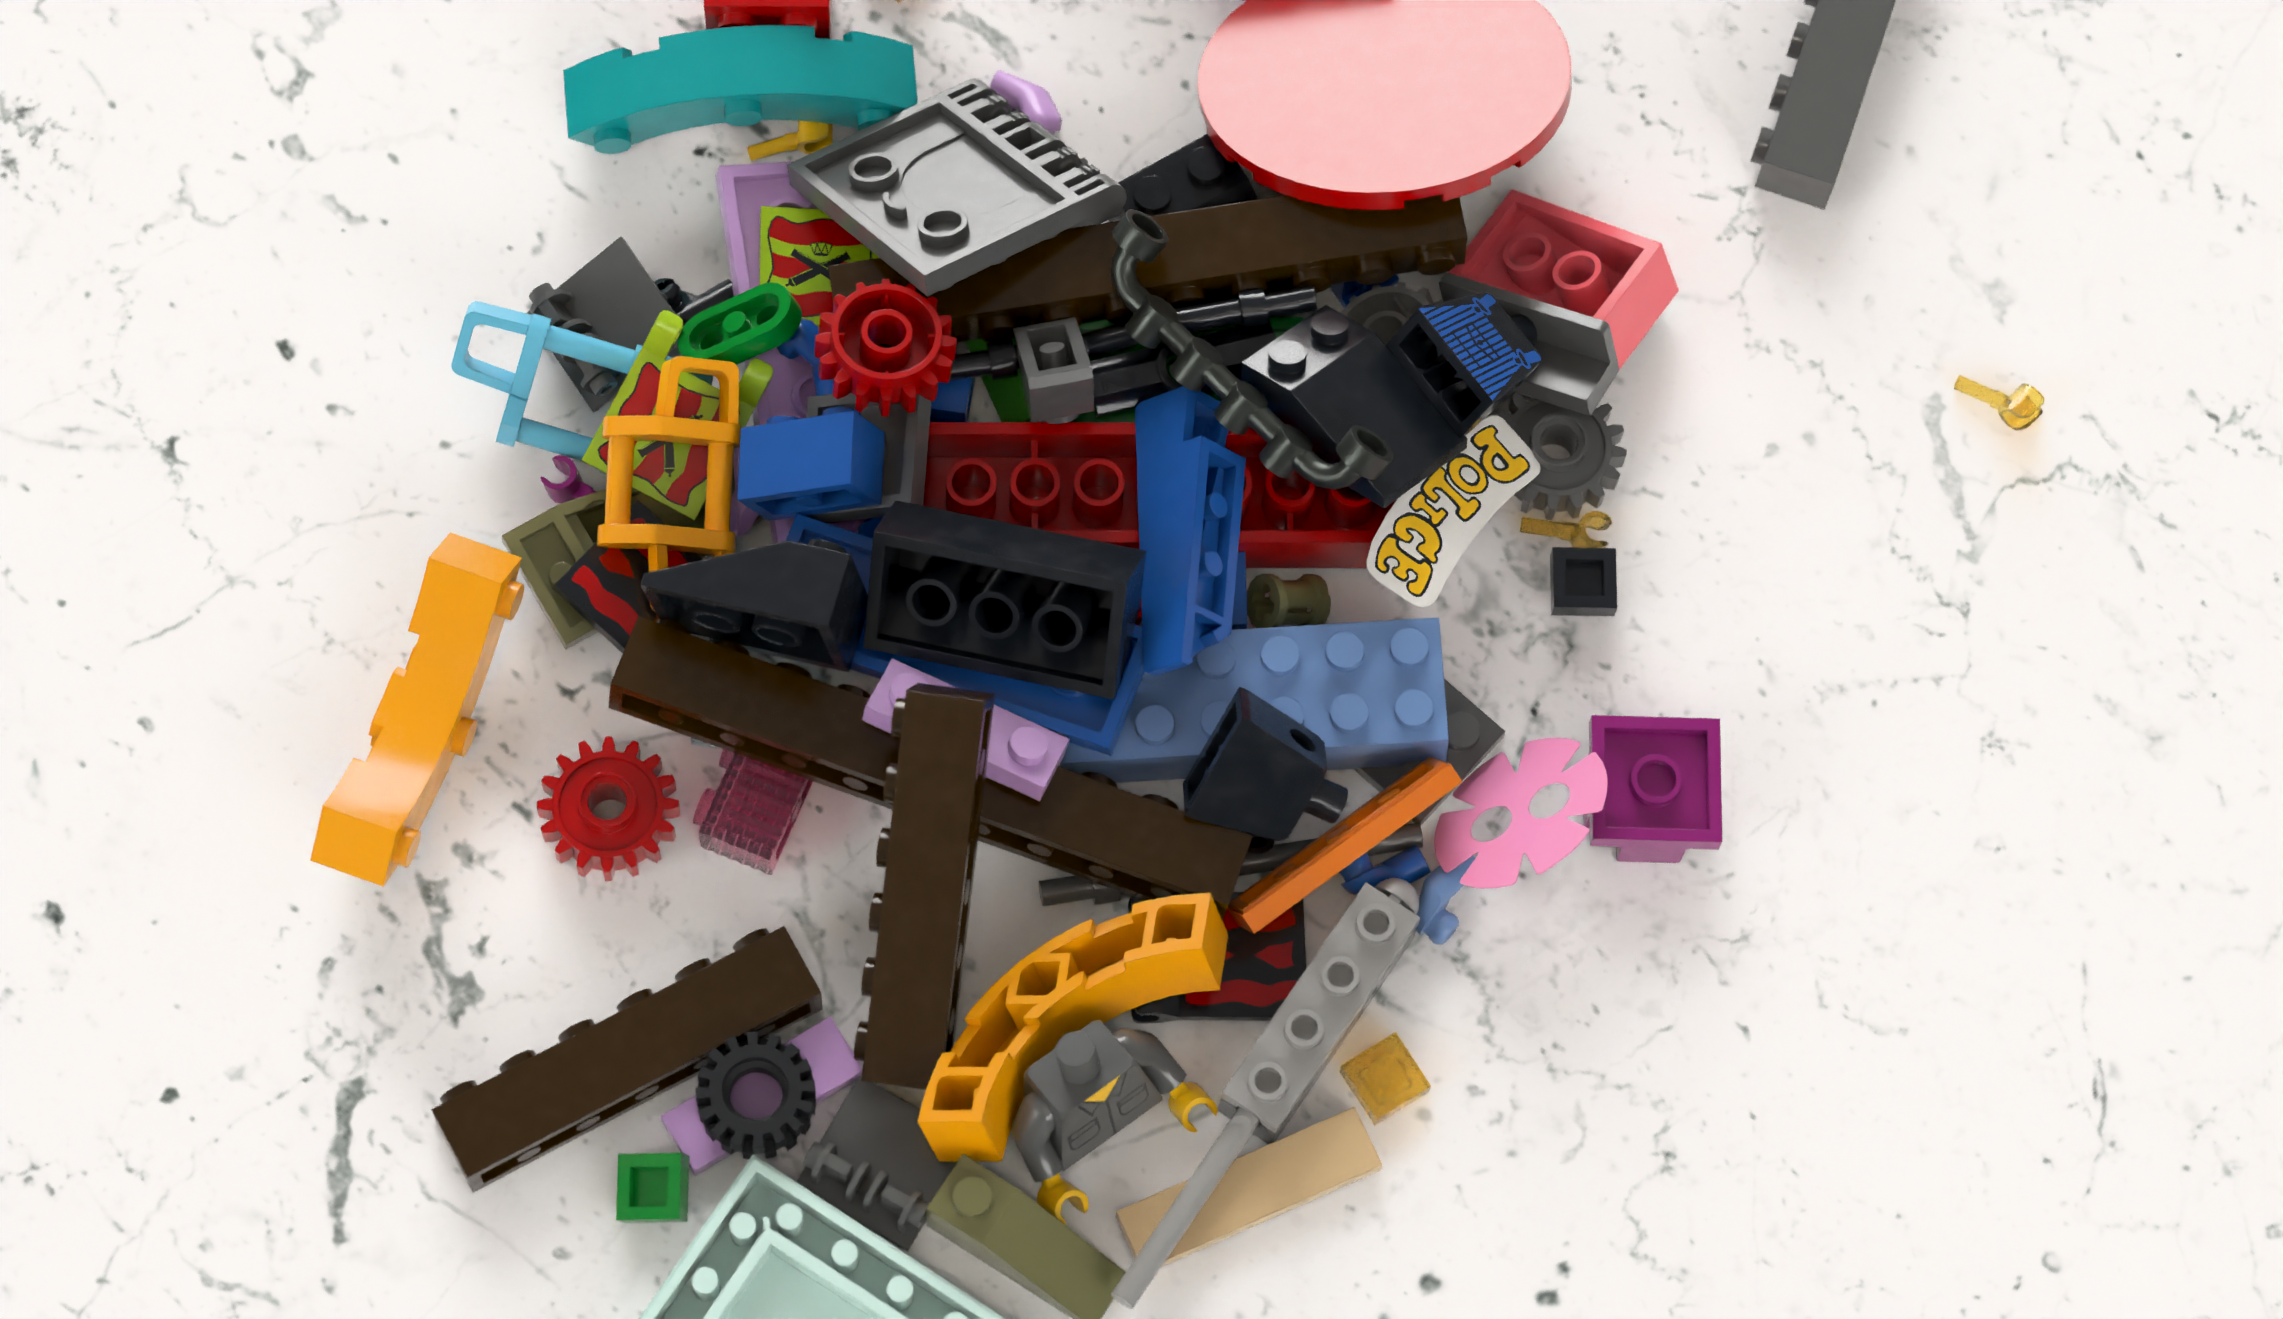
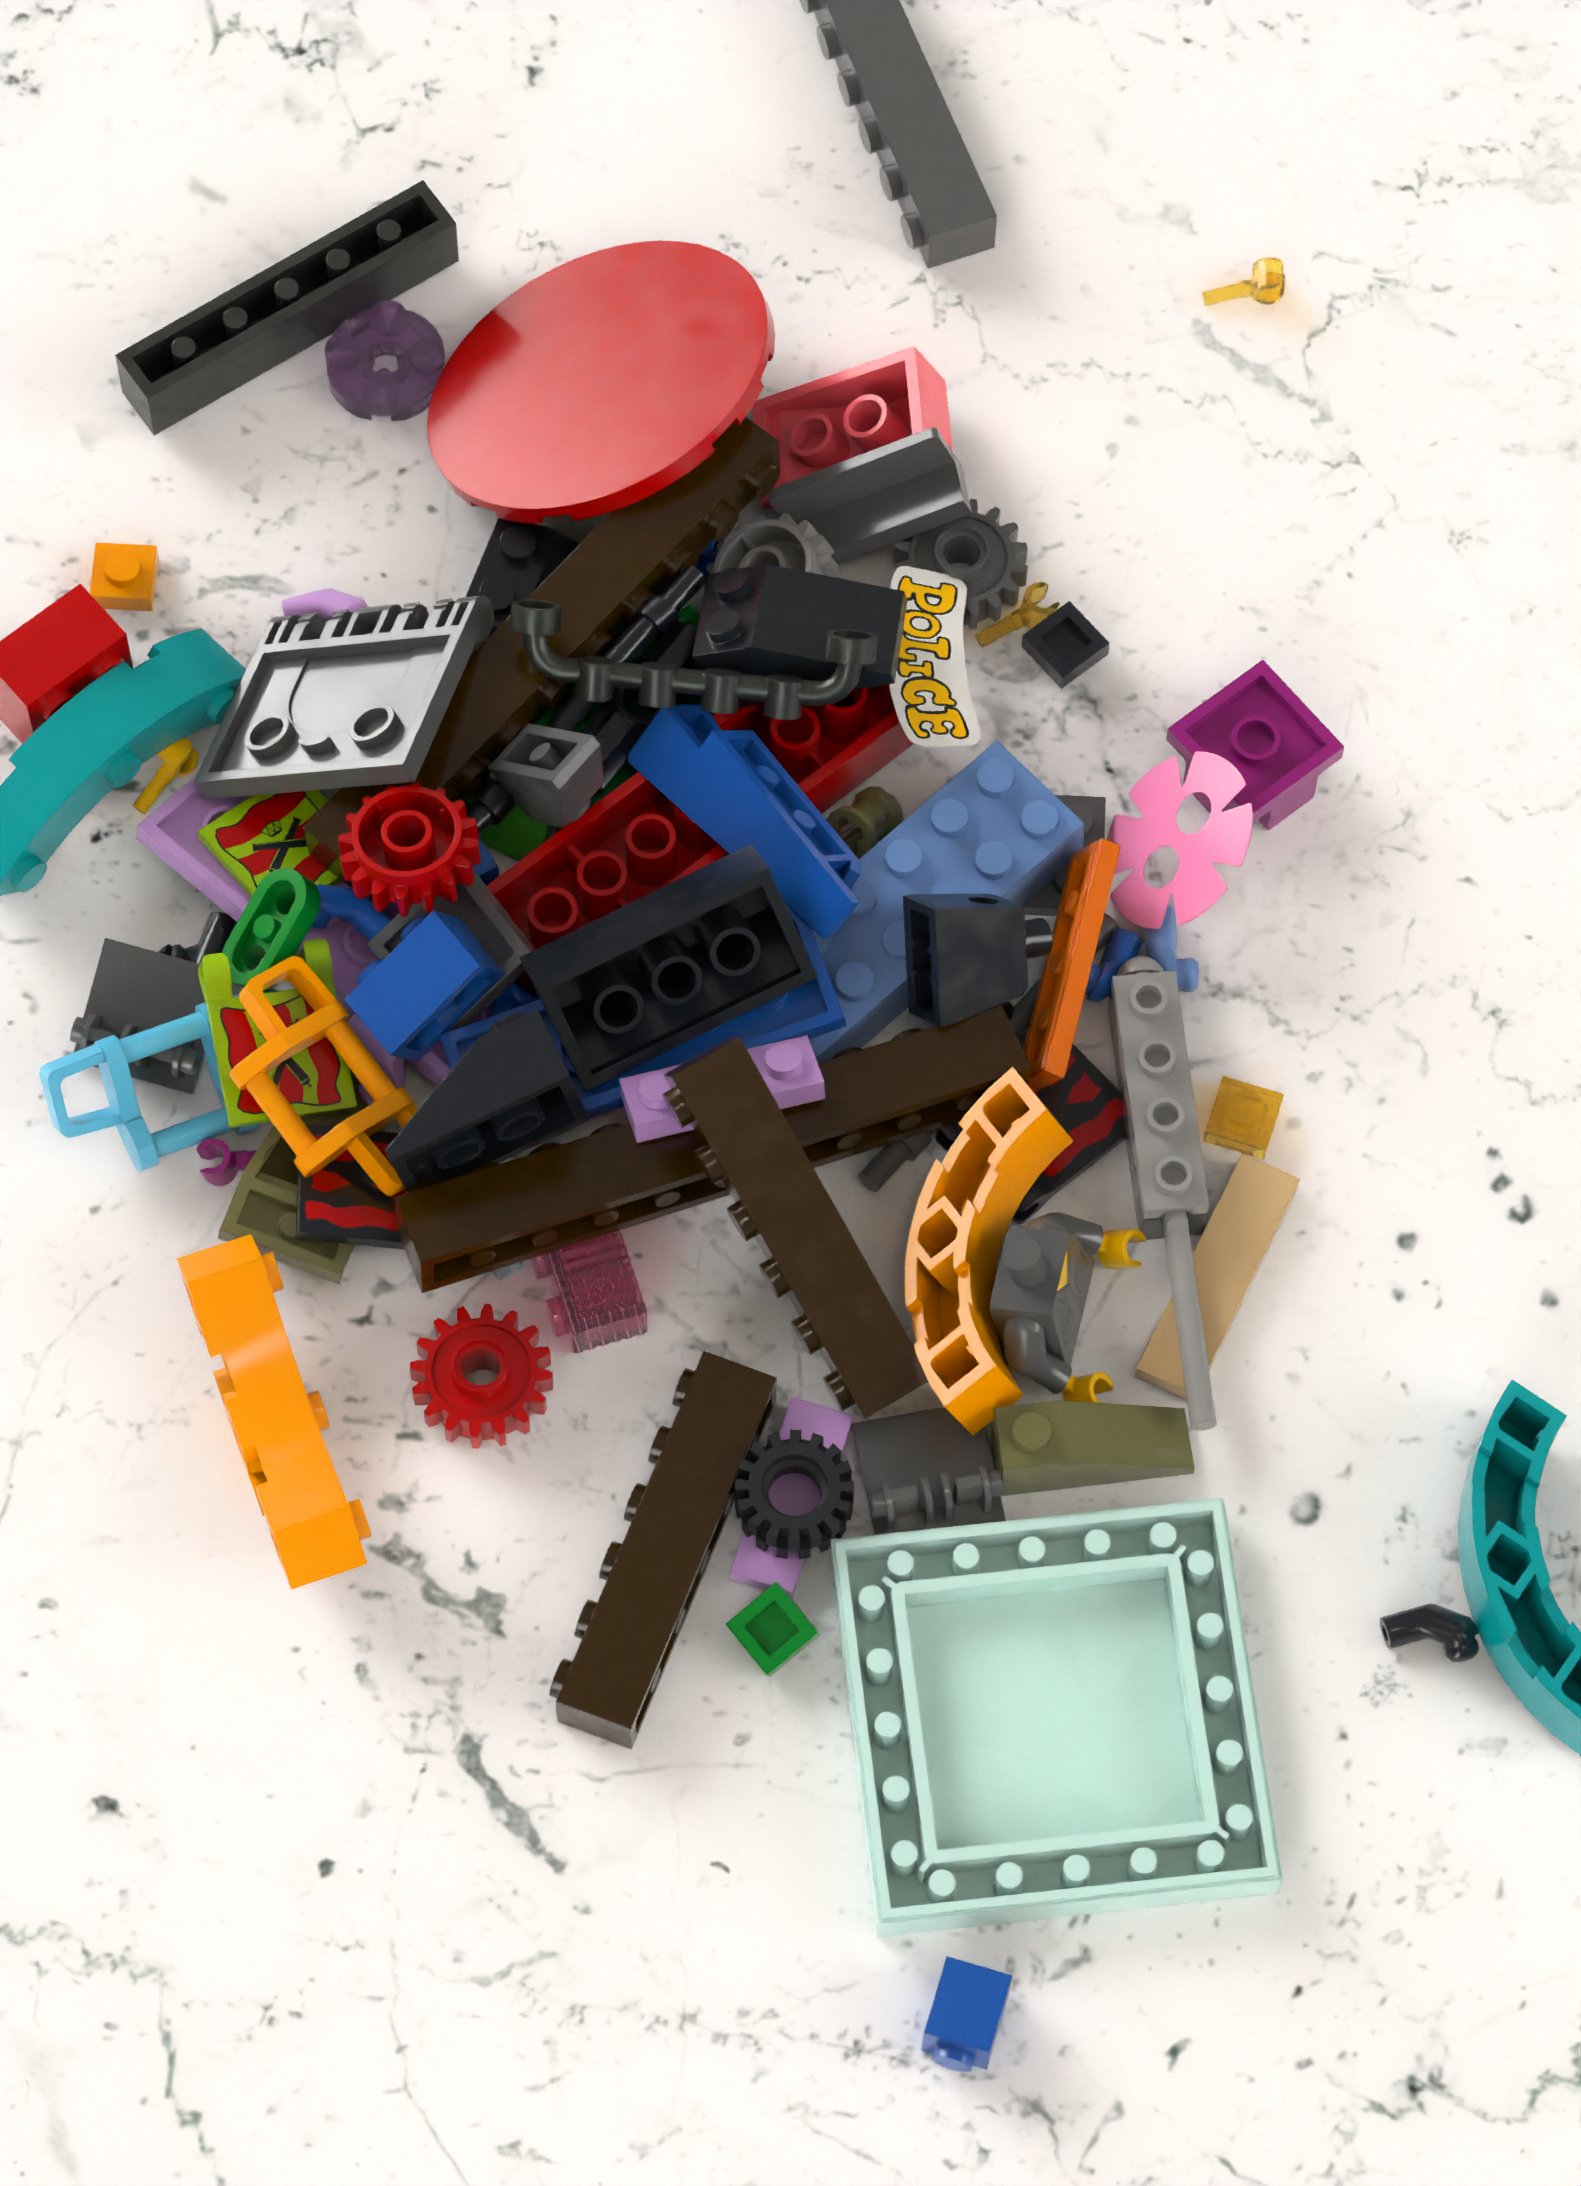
camera: 35 degrees left, 5 degrees down
(1466, 356) = (853, 531): black torso -> none

